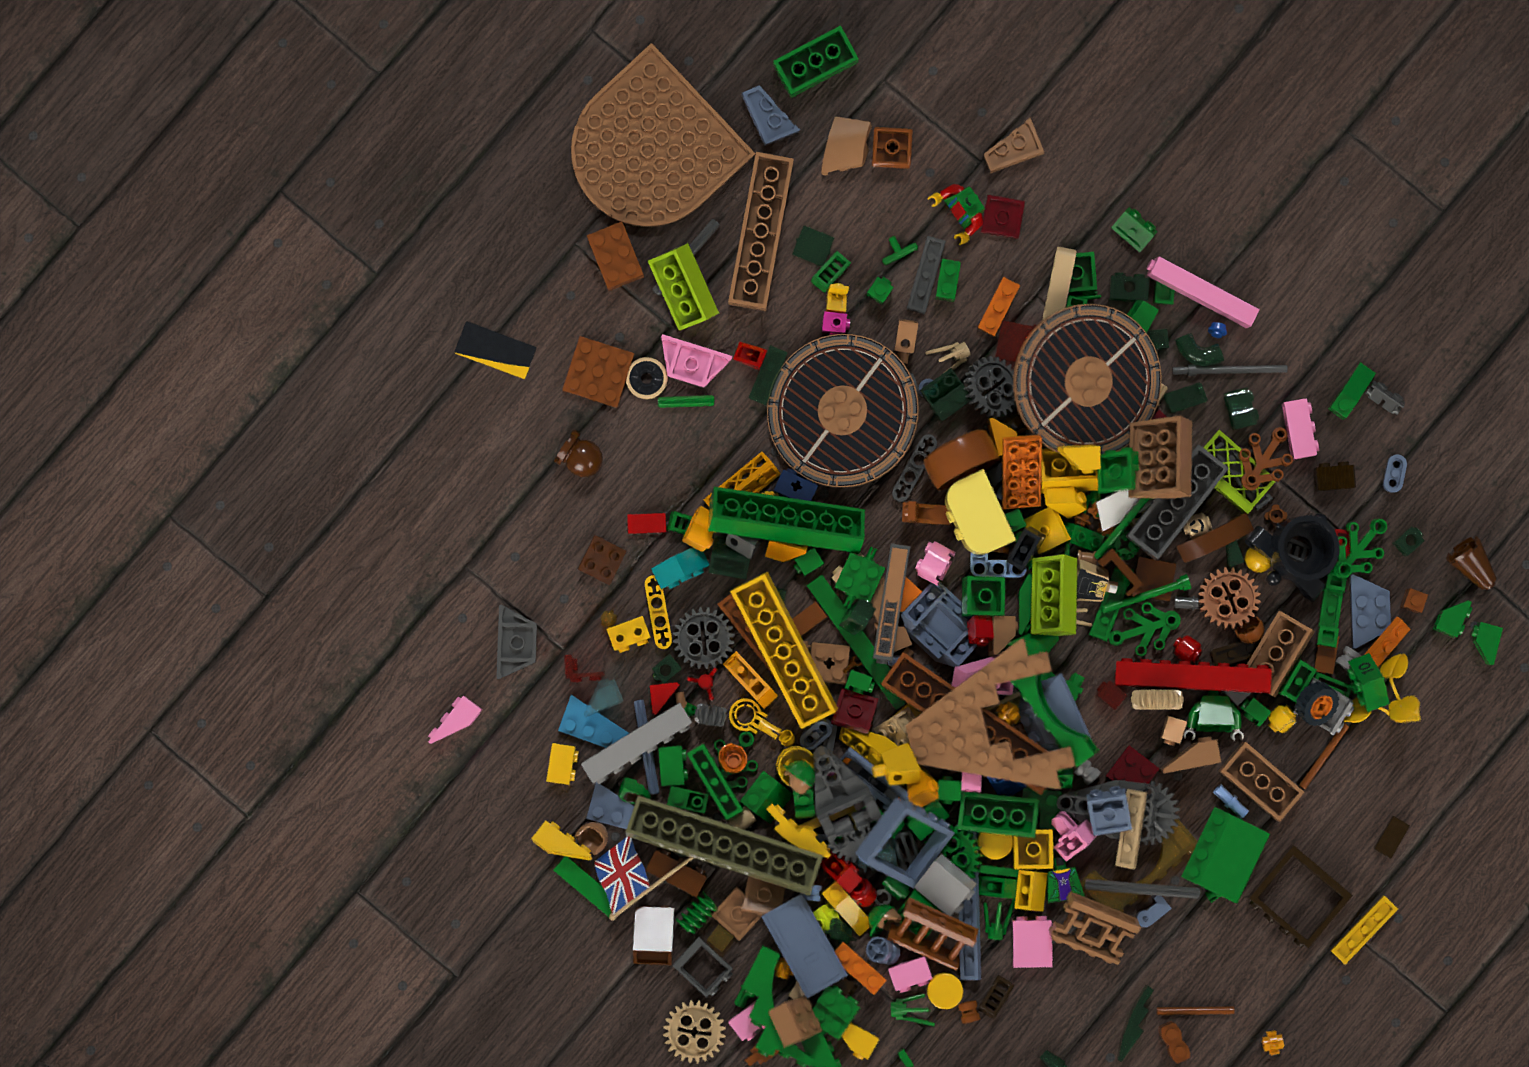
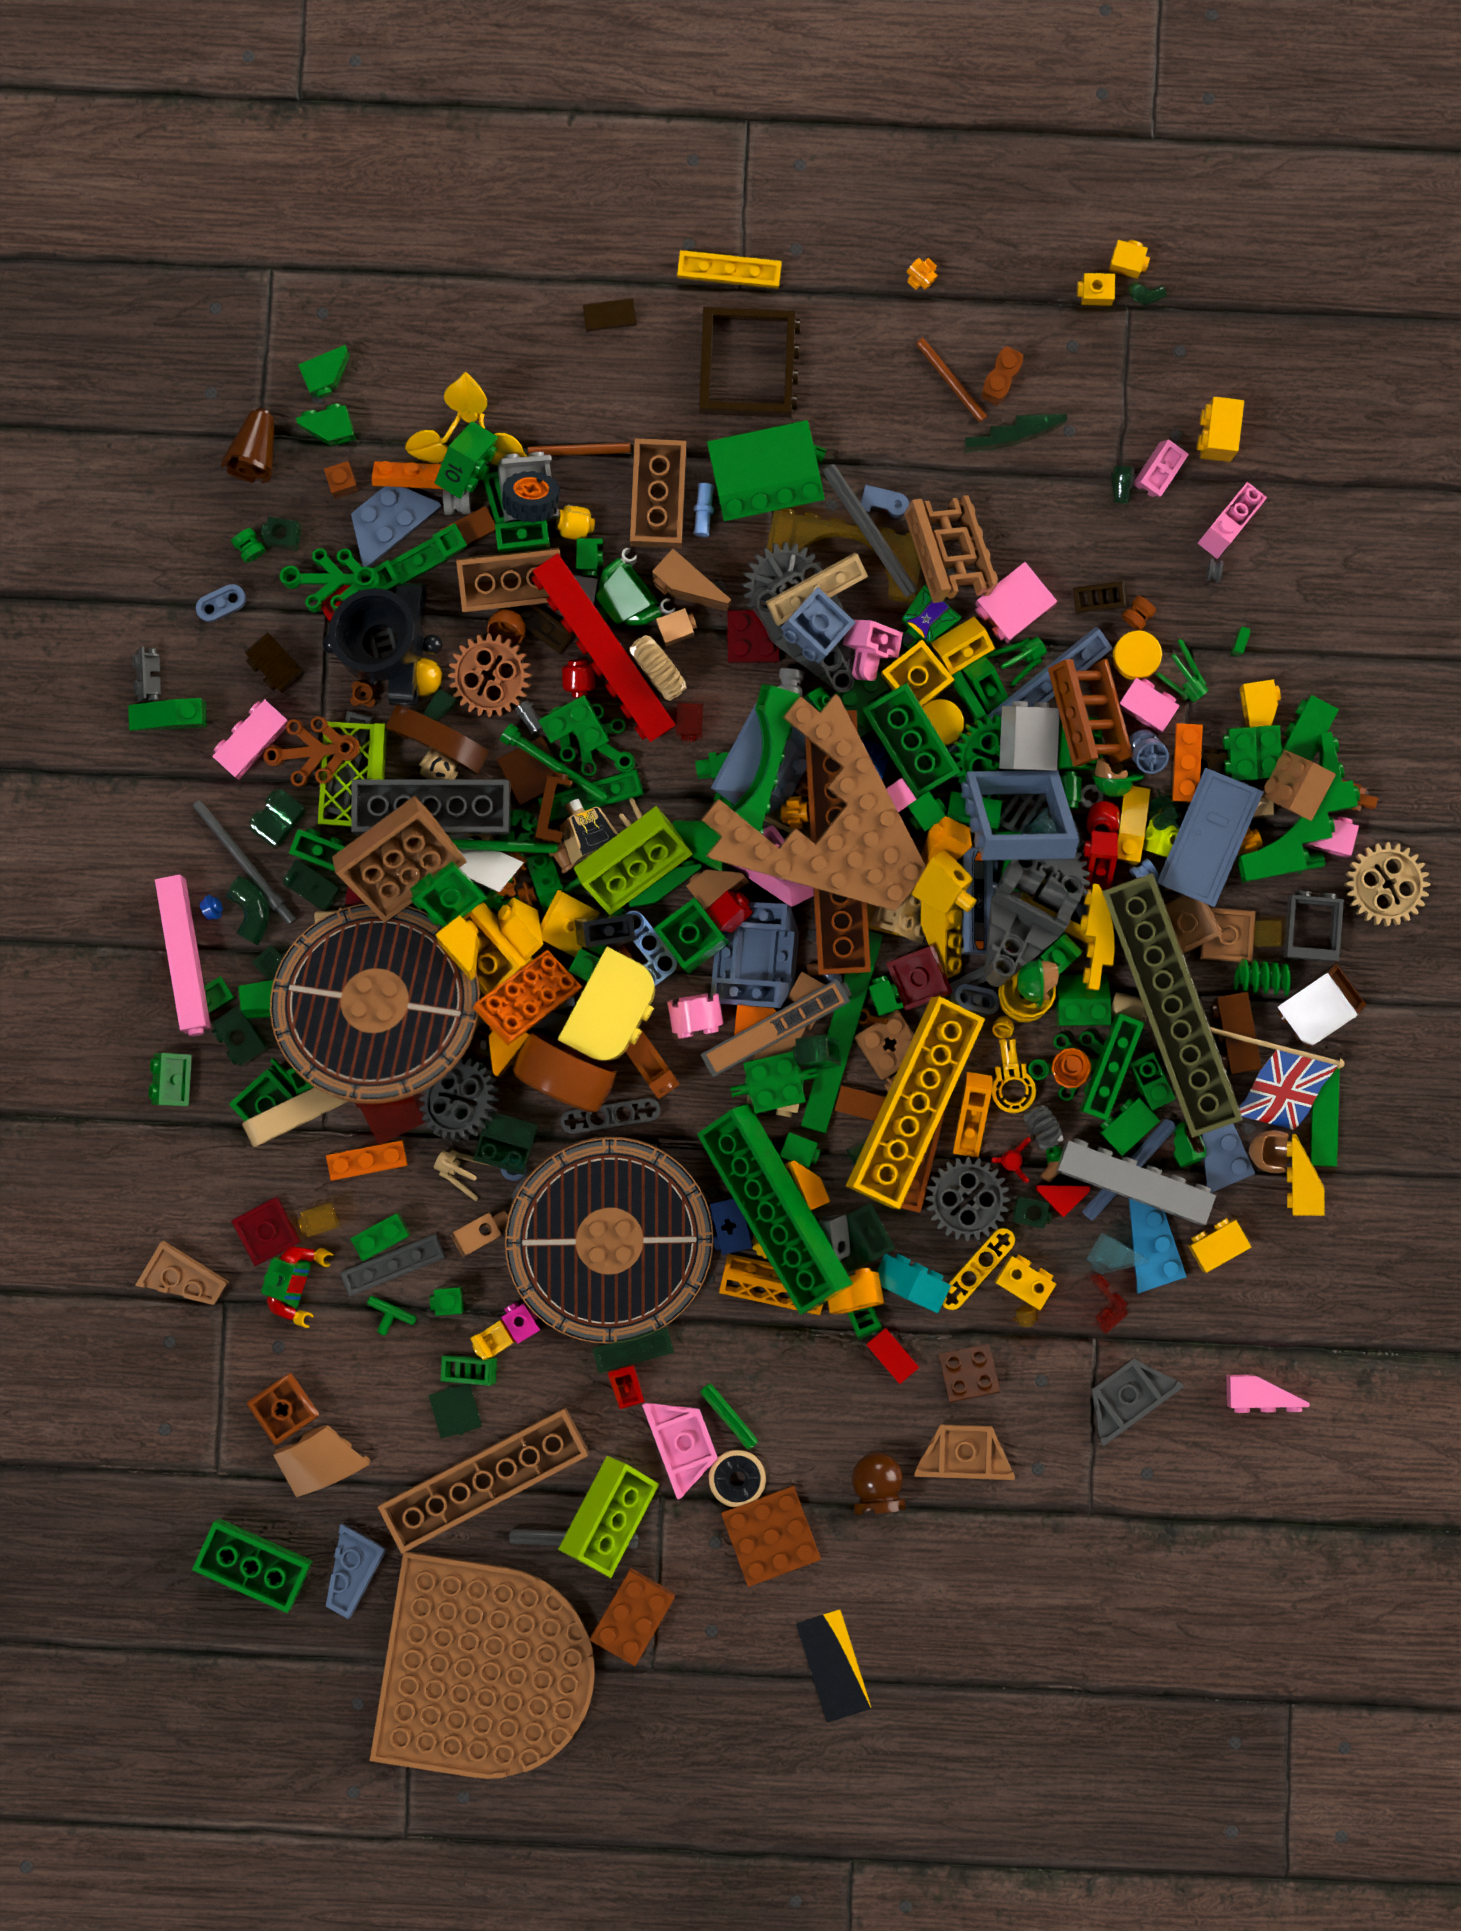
camera: 125 degrees left, 0 degrees up
(557, 521) = (964, 1453): none -> medium nougat wing
(985, 252) = (318, 1220): none -> clear yellow brick
(1161, 630) = (575, 717): none -> green brick
(1204, 416) = (316, 850): none -> green brick
(1417, 516) = (248, 545): none -> green wheel

